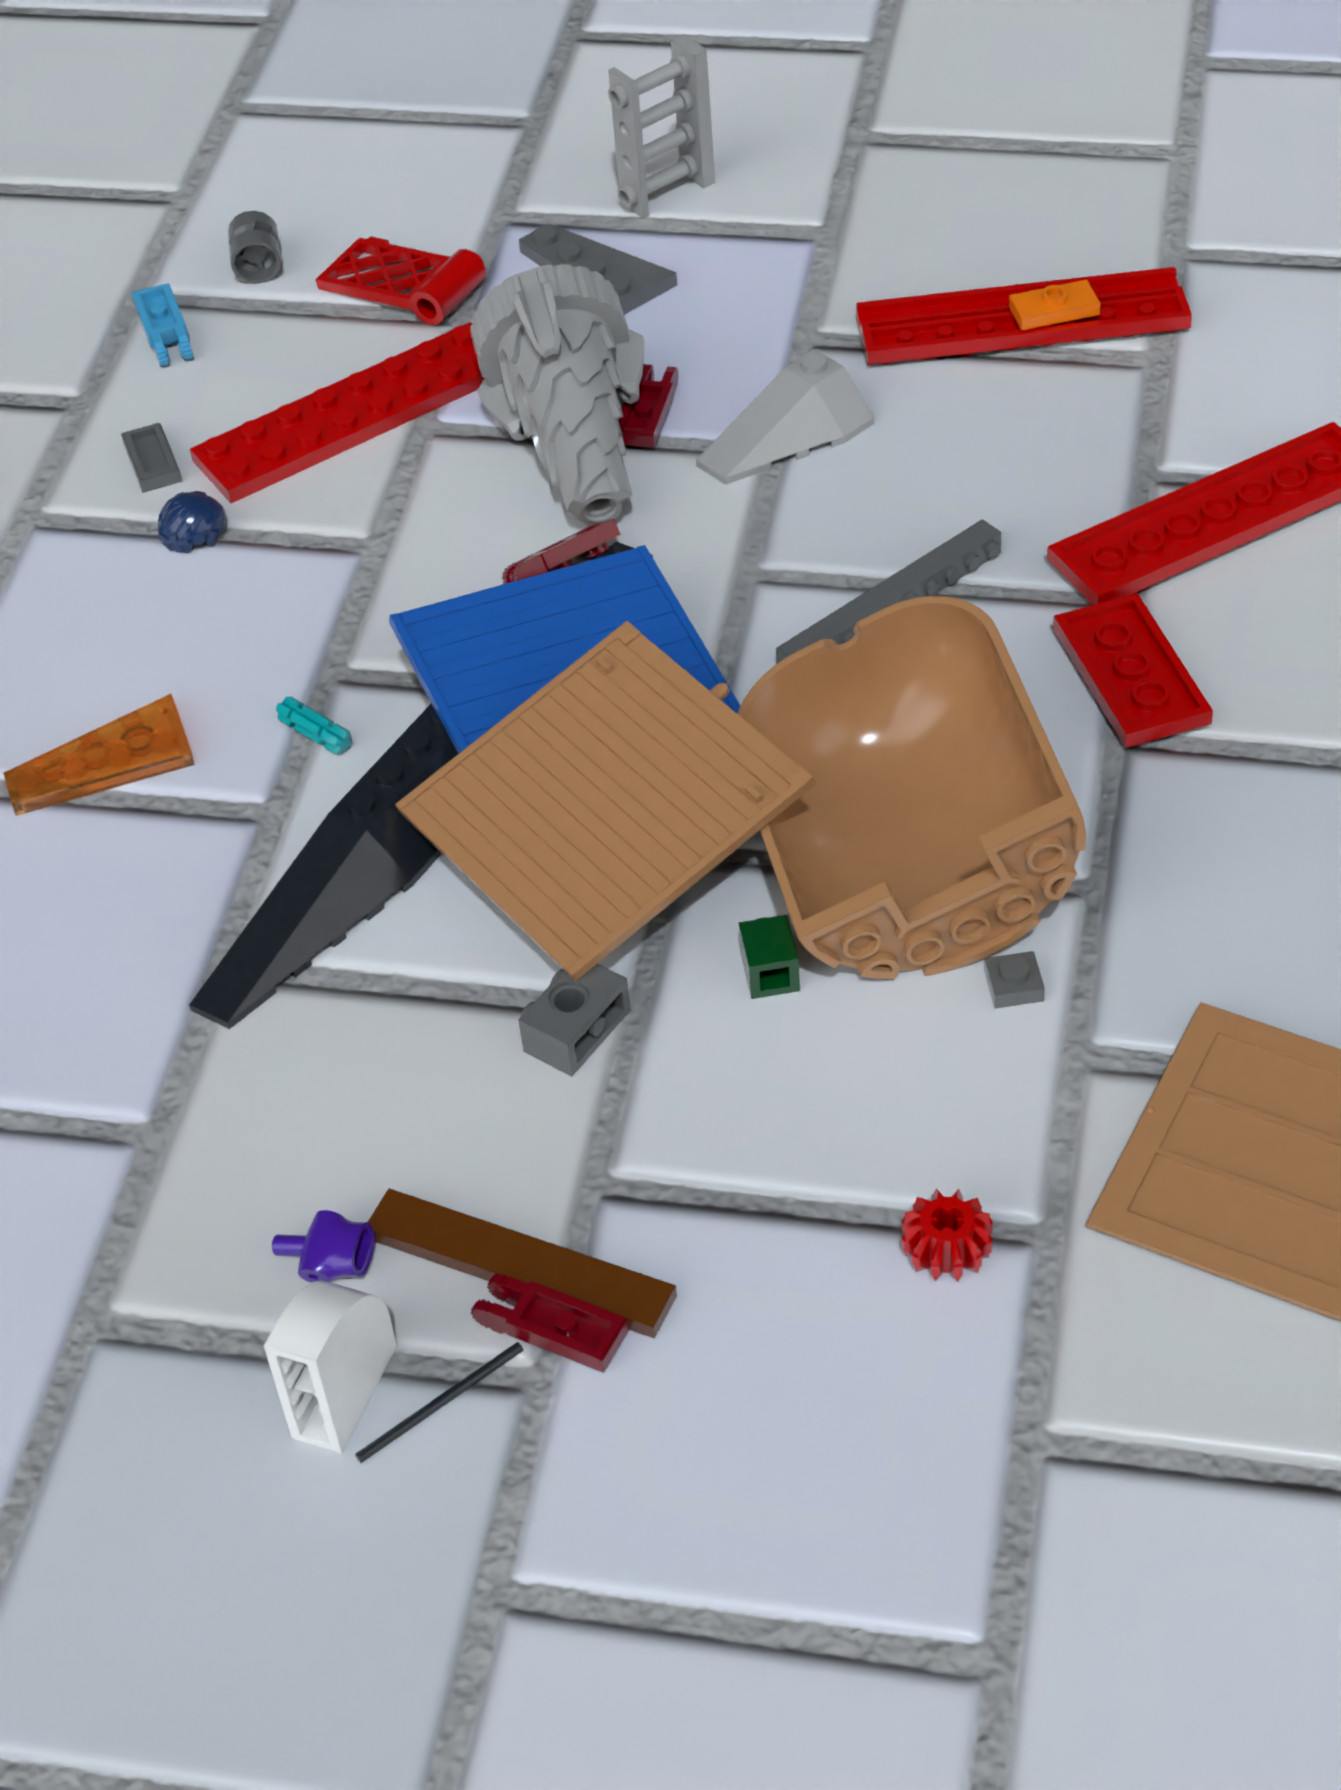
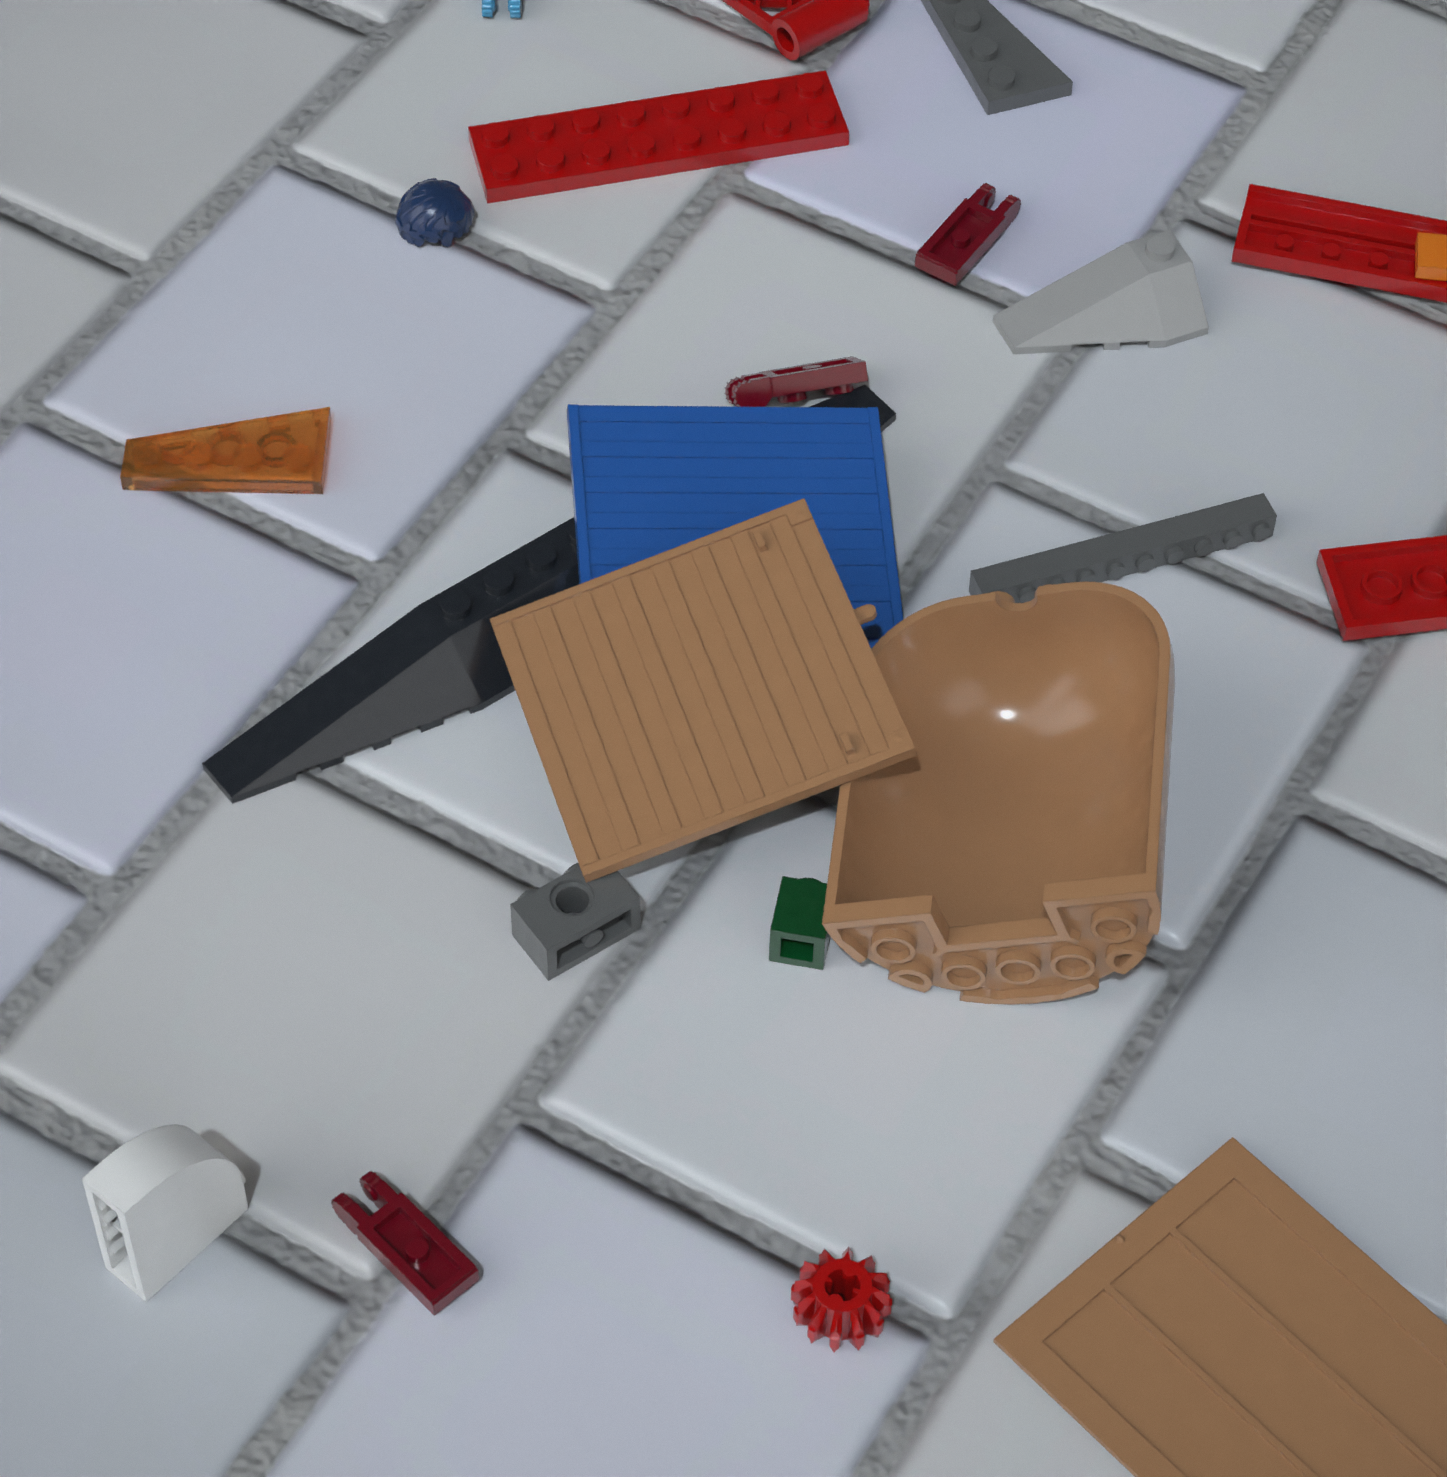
camera: 15 degrees right, 5 degrees up
(151, 457) = (427, 123): dark grey tile -> none
(314, 725) = (458, 492): teal axle -> none
(330, 1249) = (224, 1082): dark purple piece -> none
(438, 1402) = (262, 1284): black axle -> none
(488, 1249) = (406, 1163): reddish brown tile -> none
(554, 372) = (878, 153): light grey cone -> none
(1014, 979) = (1048, 1039): dark grey plate -> none
(1132, 670) = (1343, 727): red plate -> none

